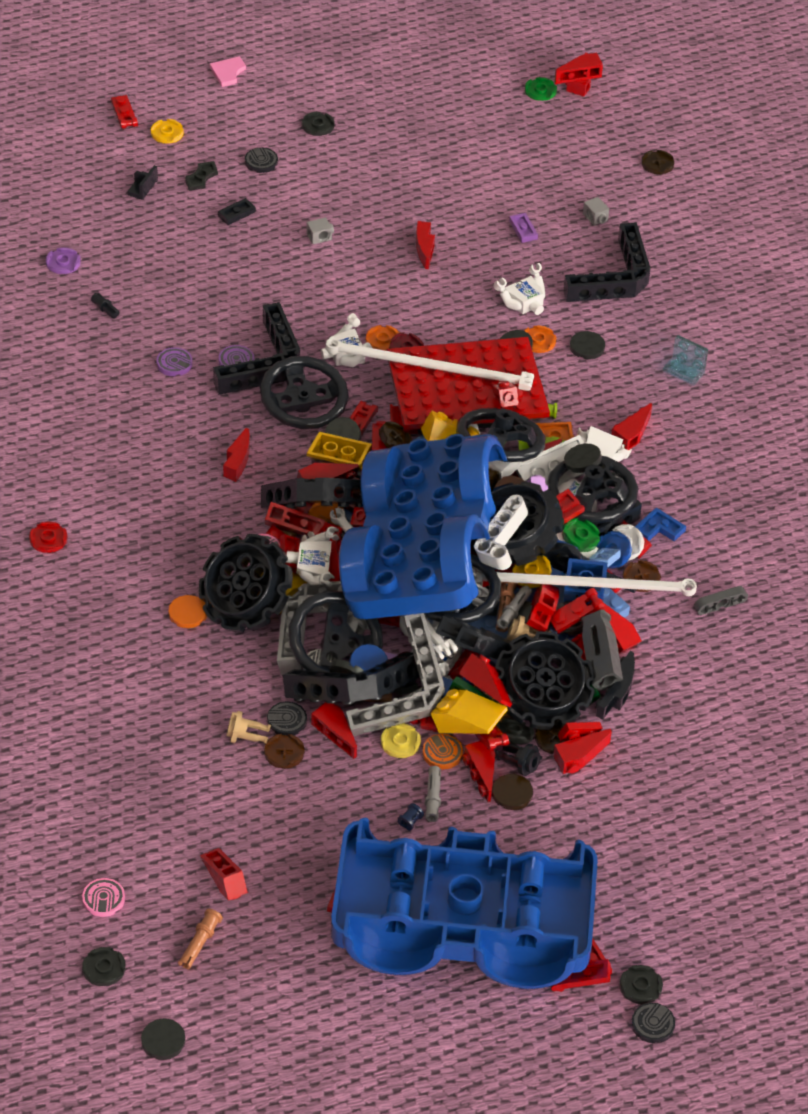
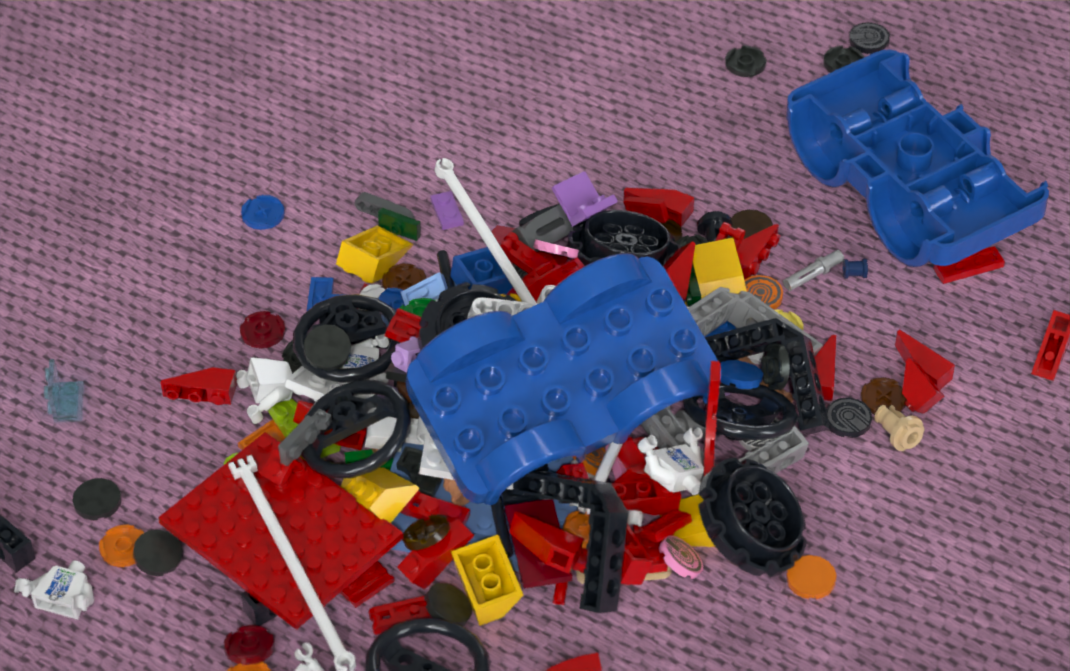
camera: 125 degrees left, 0 degrees up
(263, 758) = (919, 388): none -> red slope
(284, 786) = (935, 365): none -> red slope
(322, 581) = (711, 411): none -> red tile
(507, 393) = (302, 436): none -> dark grey hinge
(566, 621) = (556, 249): none -> bright pink tile
(601, 668) = (580, 198): none -> medium lavender bracket
(661, 490) = (262, 329): none -> dark red tile
(681, 562) = (371, 253): none -> yellow slope
(687, 602) = (399, 224): none -> dark green plate
(692, 637) = (446, 210): none -> medium lavender plate
(697, 925) = (739, 64): none -> pearl dark grey tile
(781, 544) = (262, 212): none -> blue tile

